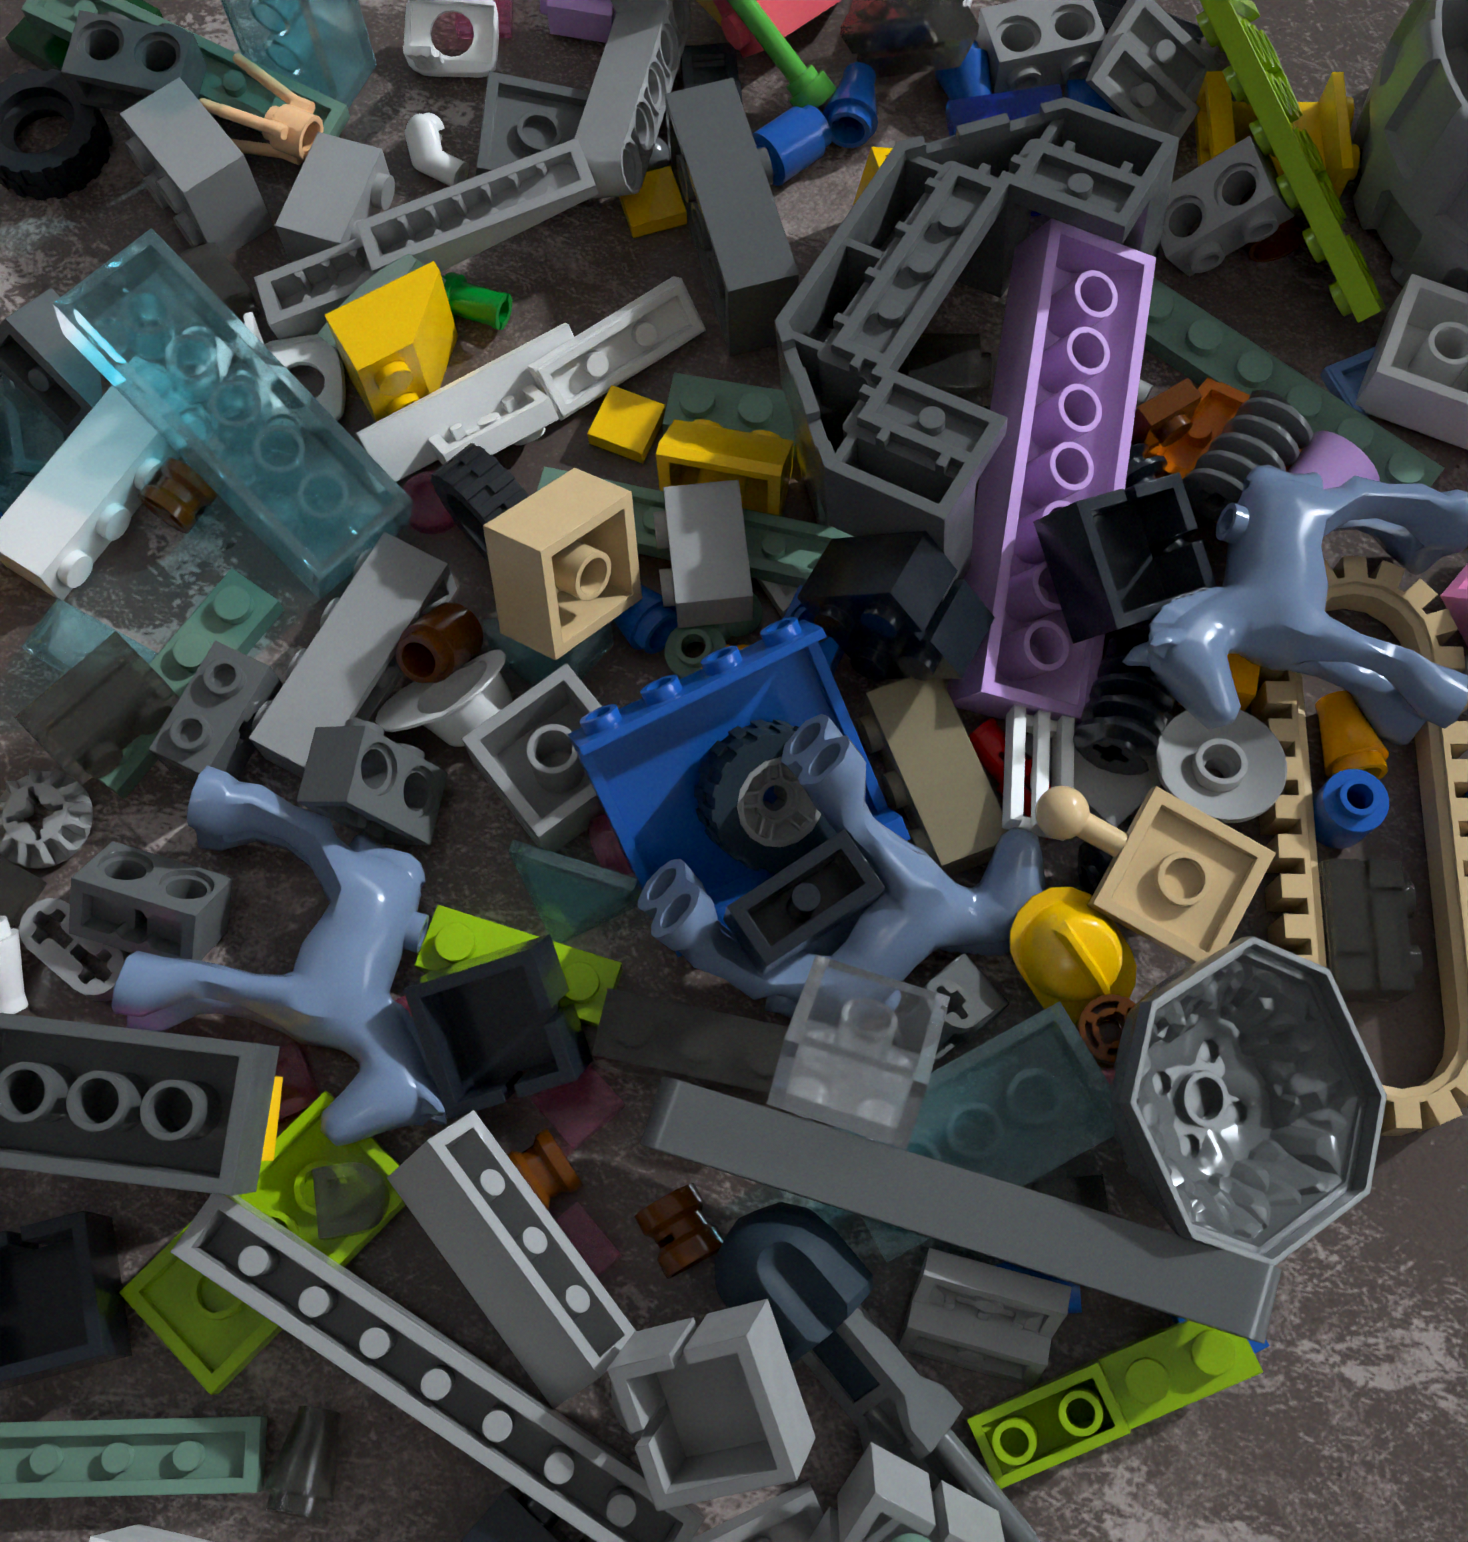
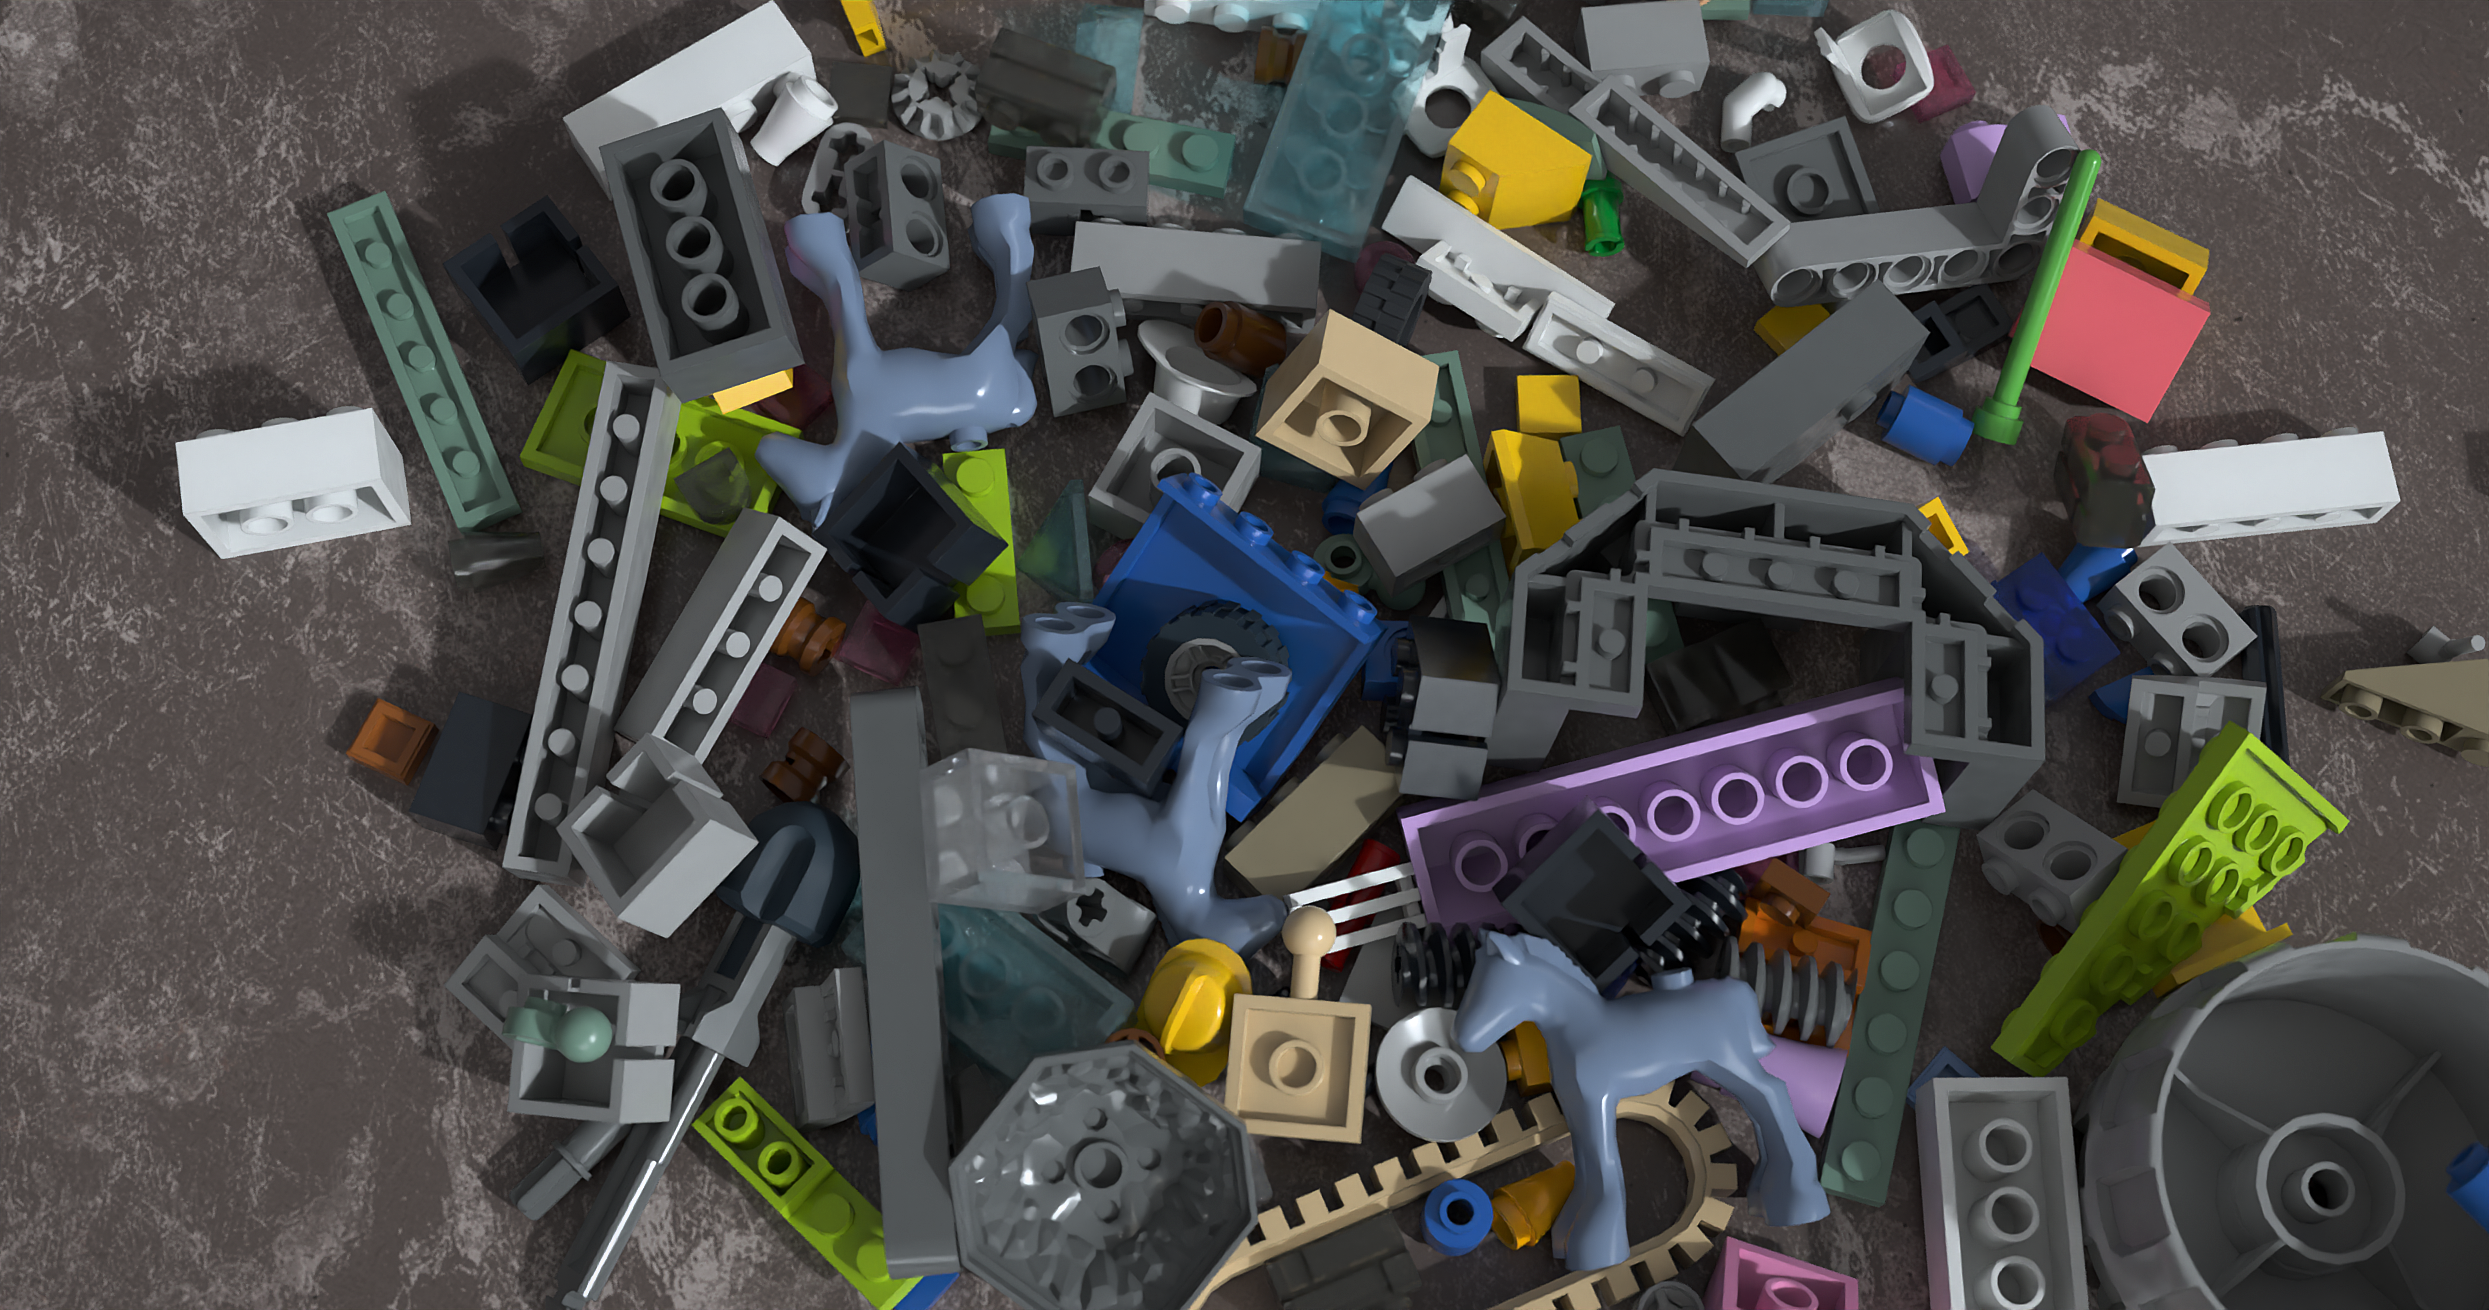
camera: 60 degrees right, 0 degrees up
(853, 107) = (1999, 470): blue cone -> none

